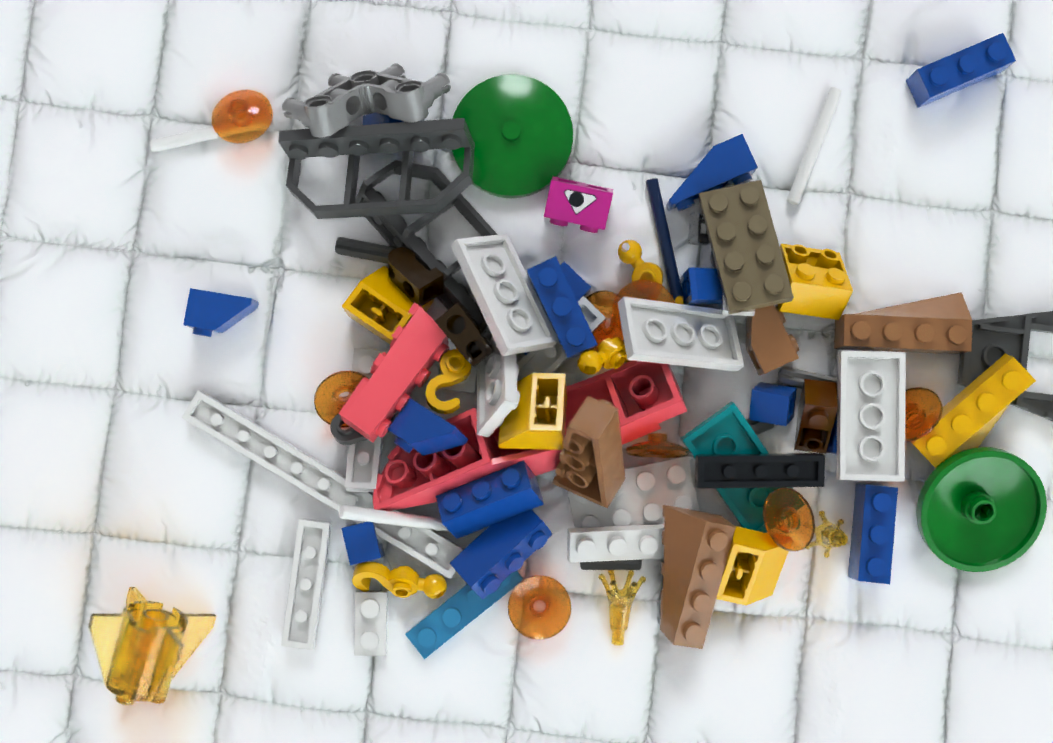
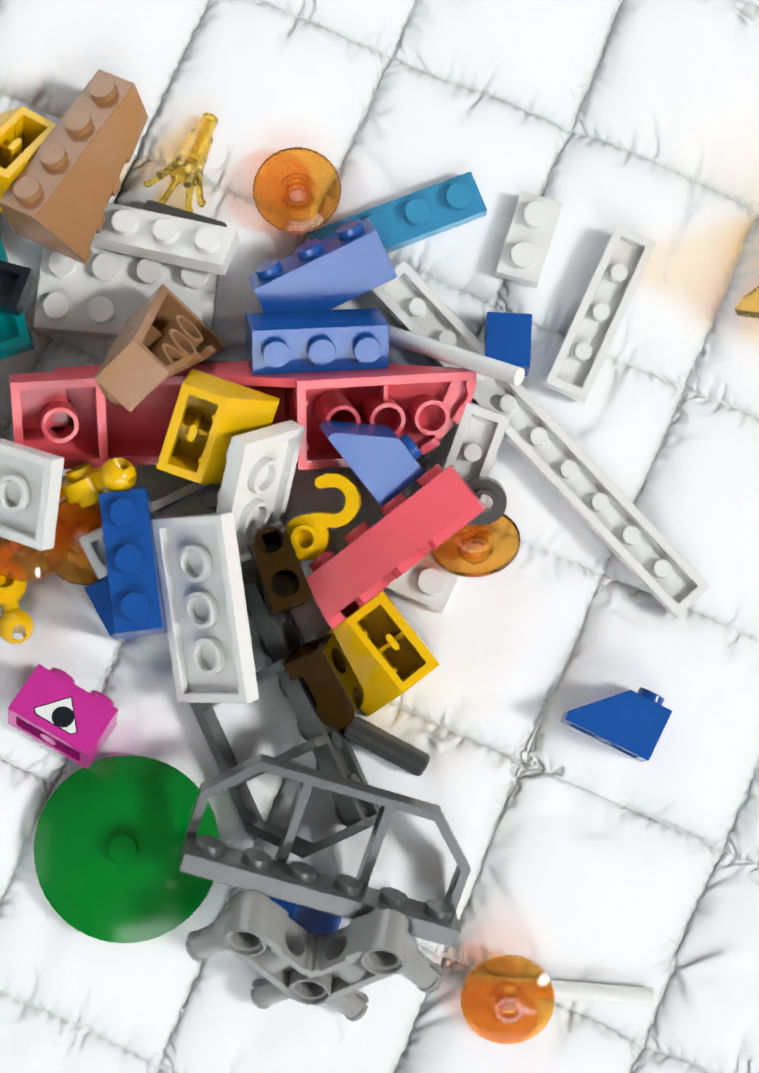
camera: 170 degrees left, 5 degrees down
(400, 581) = (472, 278): yellow piece -> none
(657, 447) = (66, 346): clear orange dish -> none

